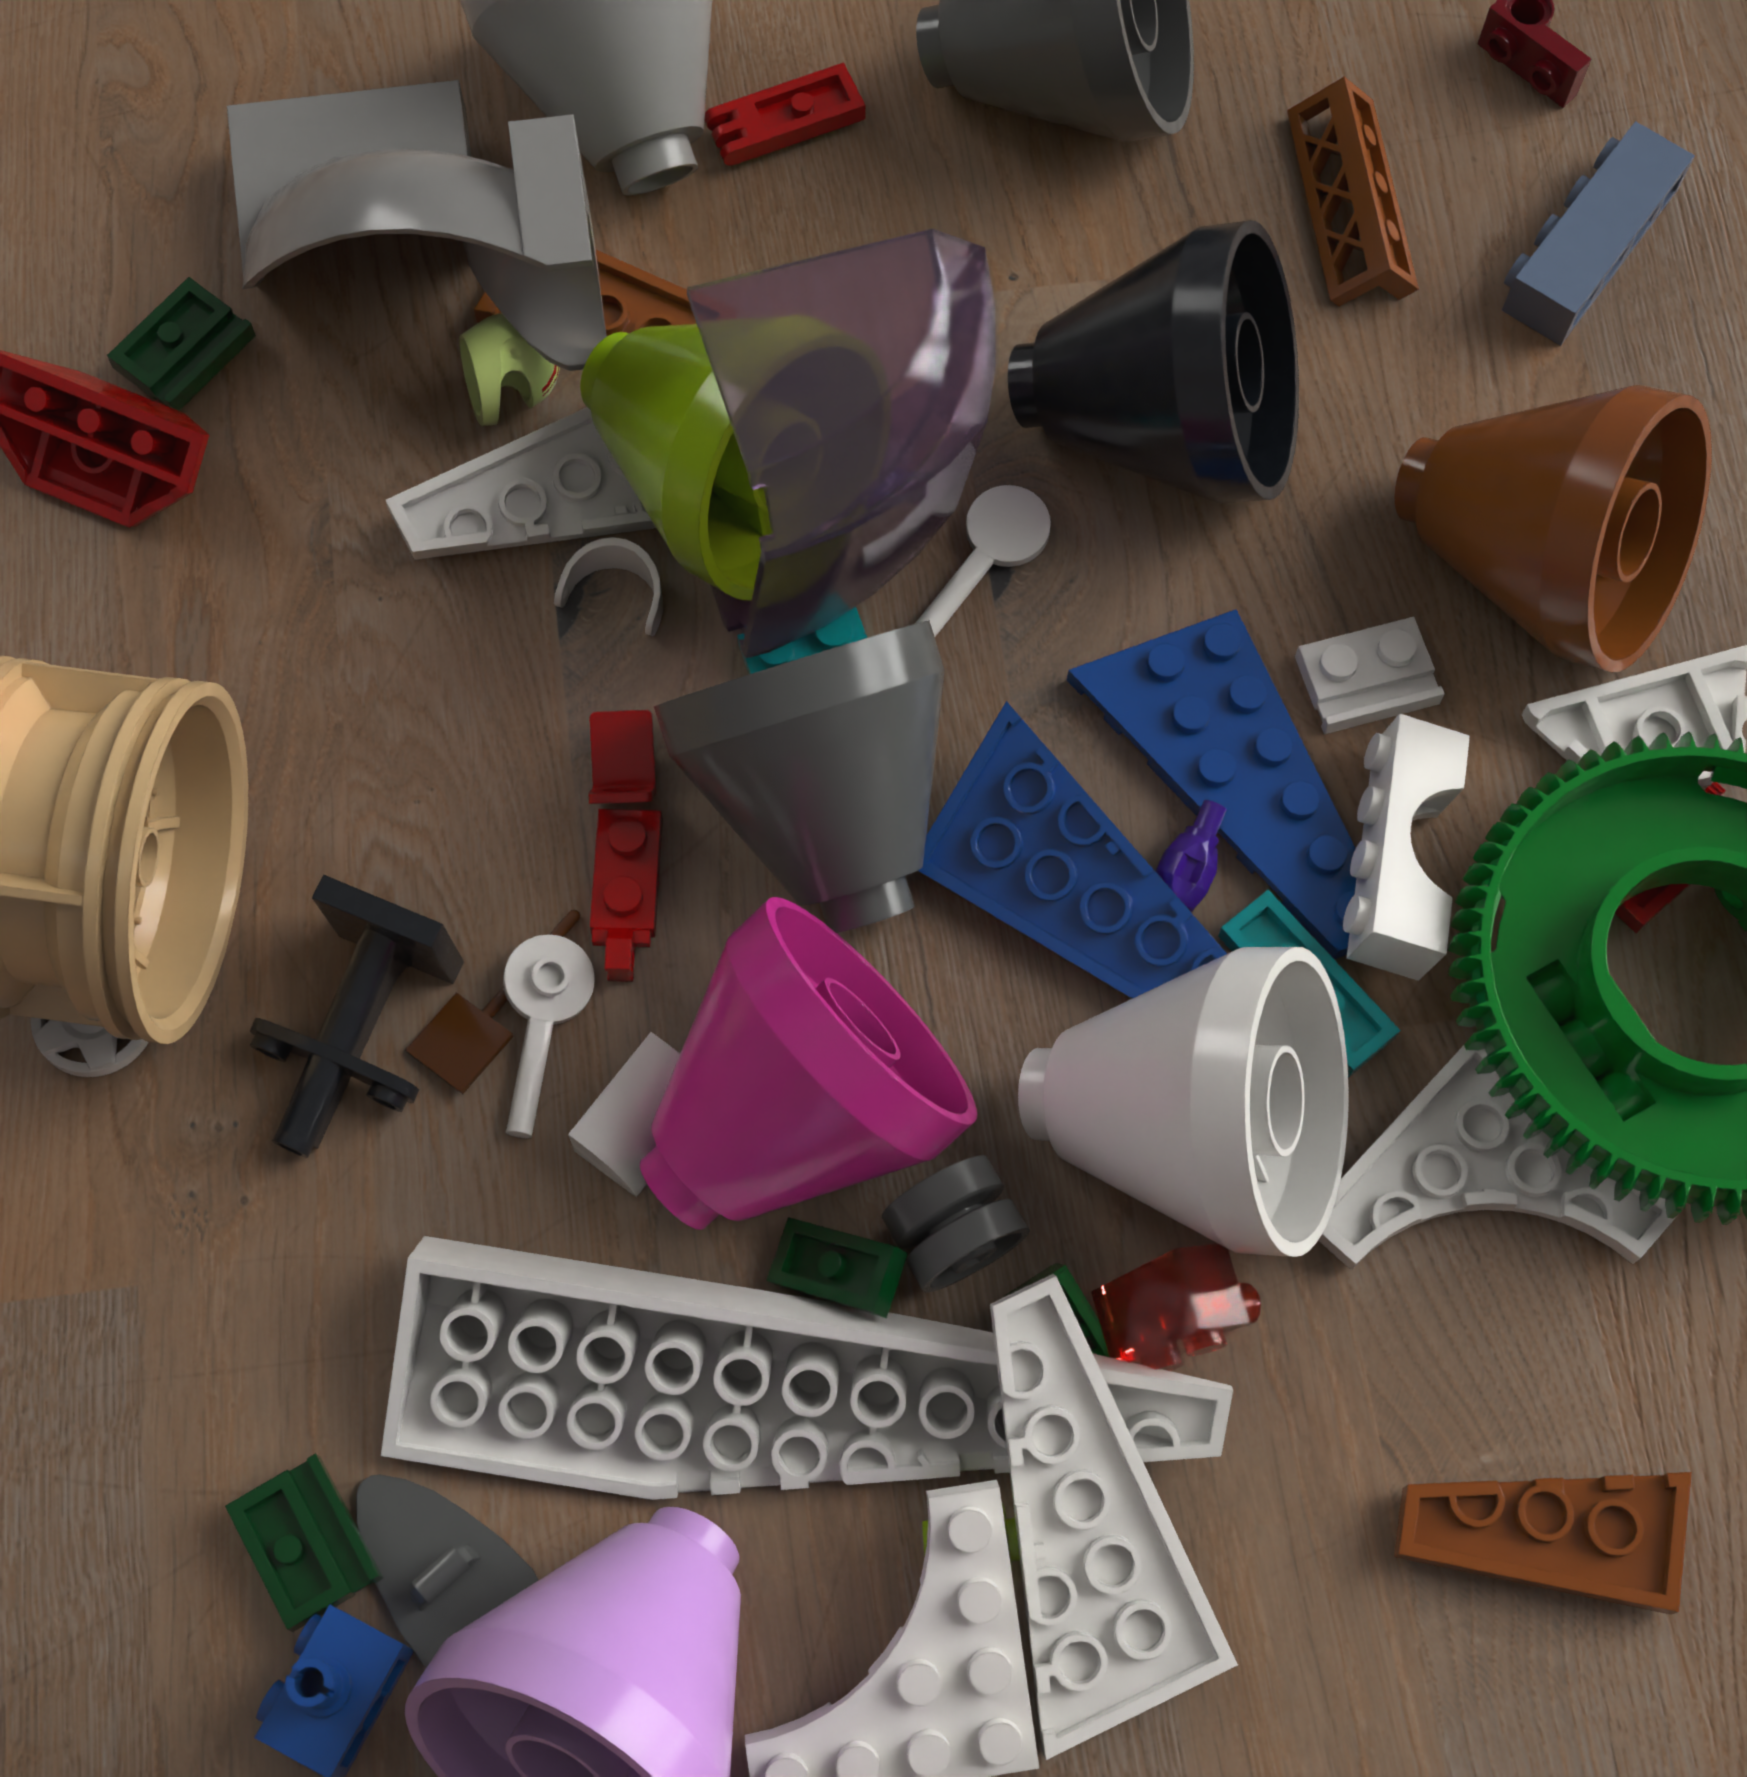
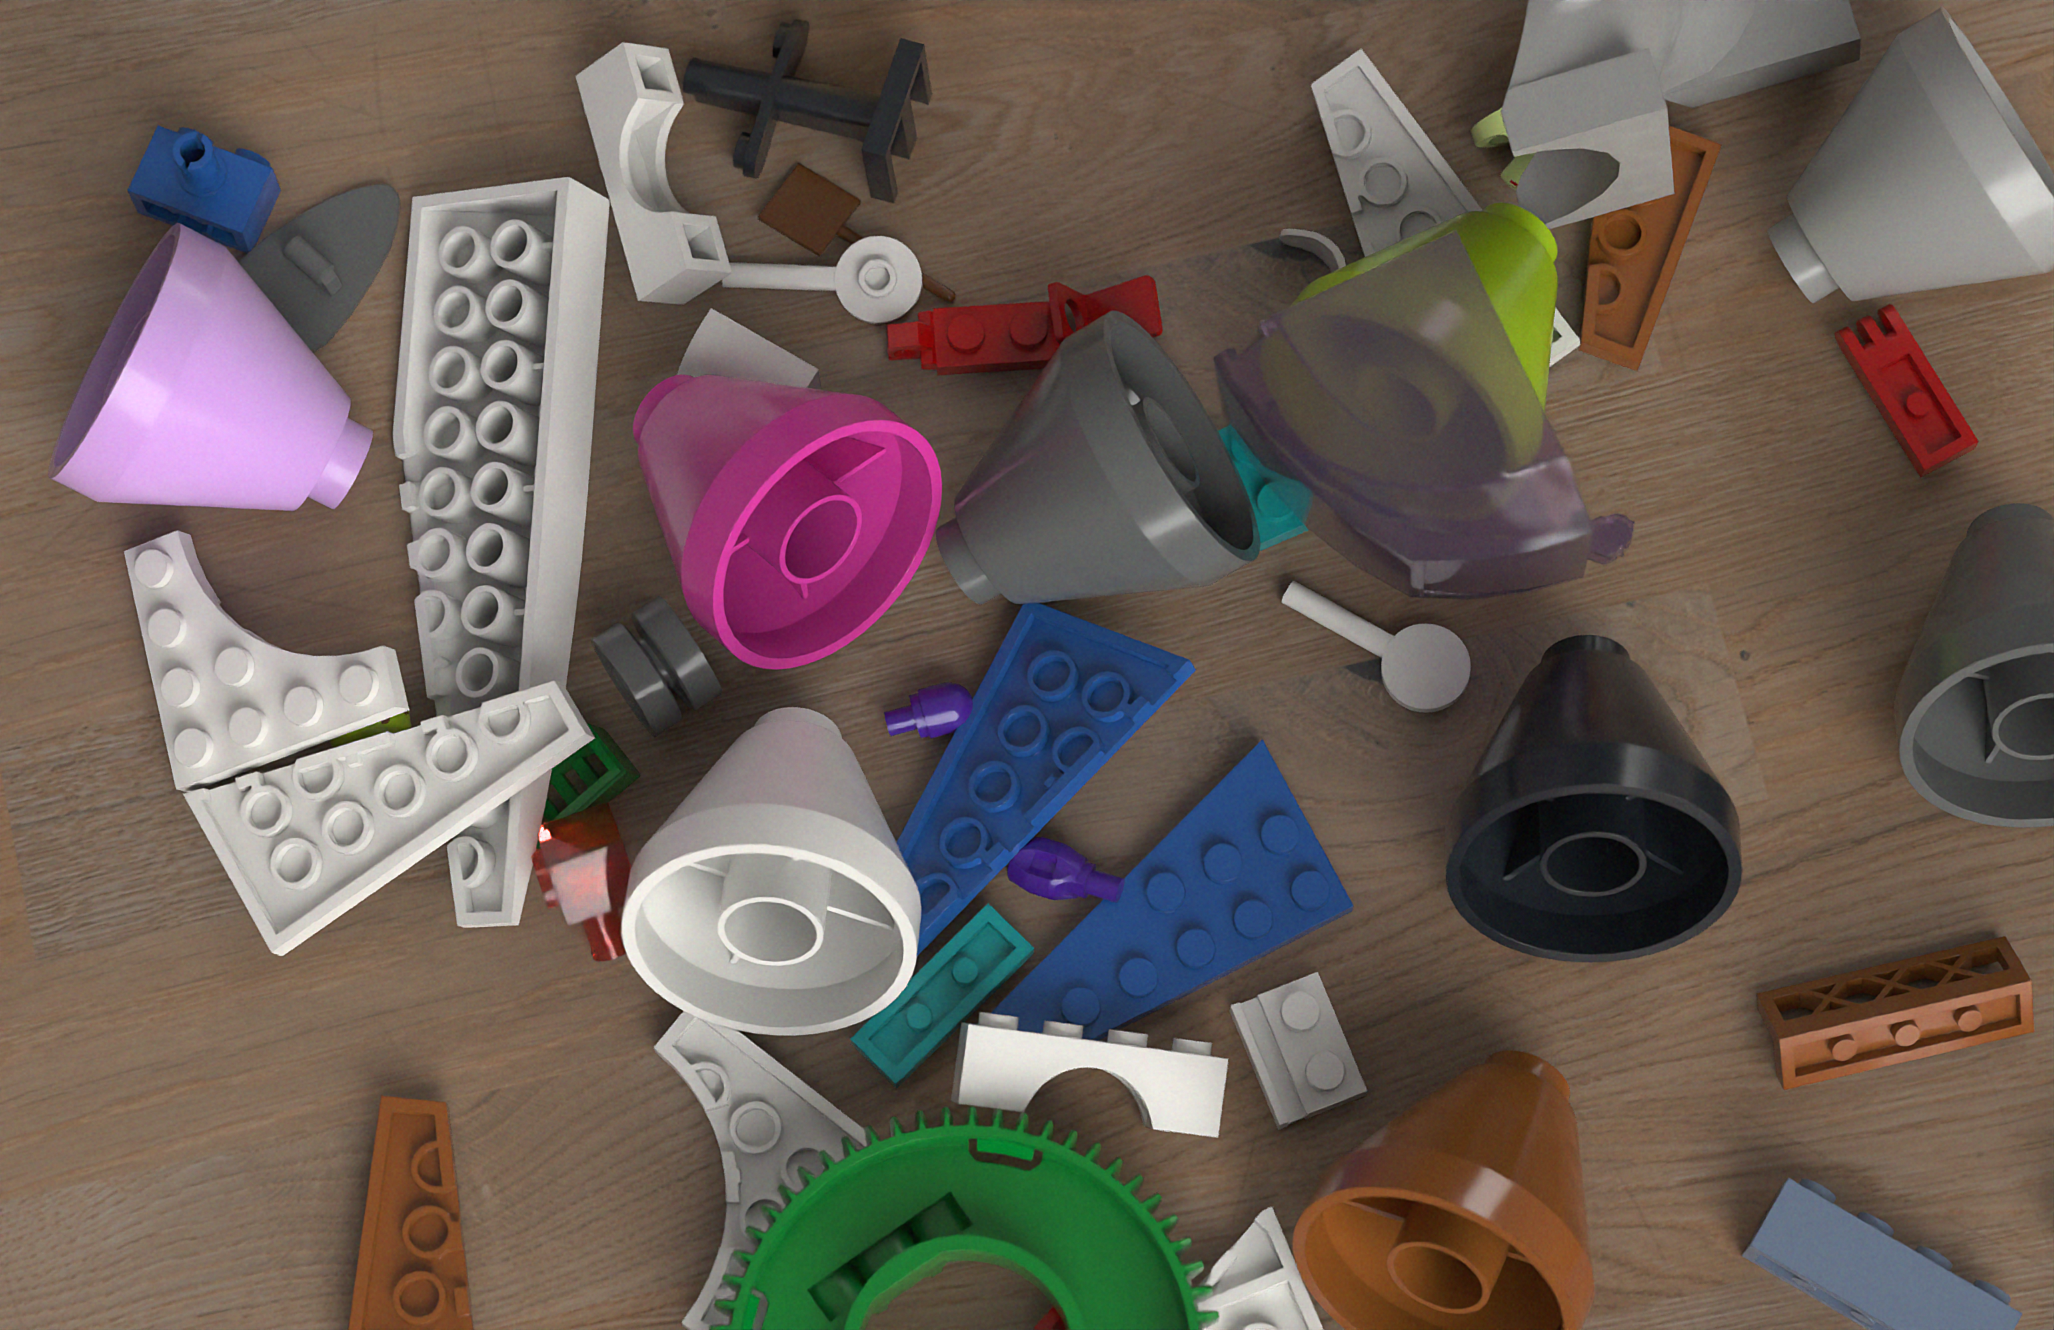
camera: 85 degrees right, 5 degrees up
(303, 1542) = (332, 144): dark green plate -> none
(323, 1206) = (630, 110): none -> white arch
(837, 1267) = (608, 565): dark green plate -> none
(1015, 966) = (932, 711): none -> dark purple cylinder

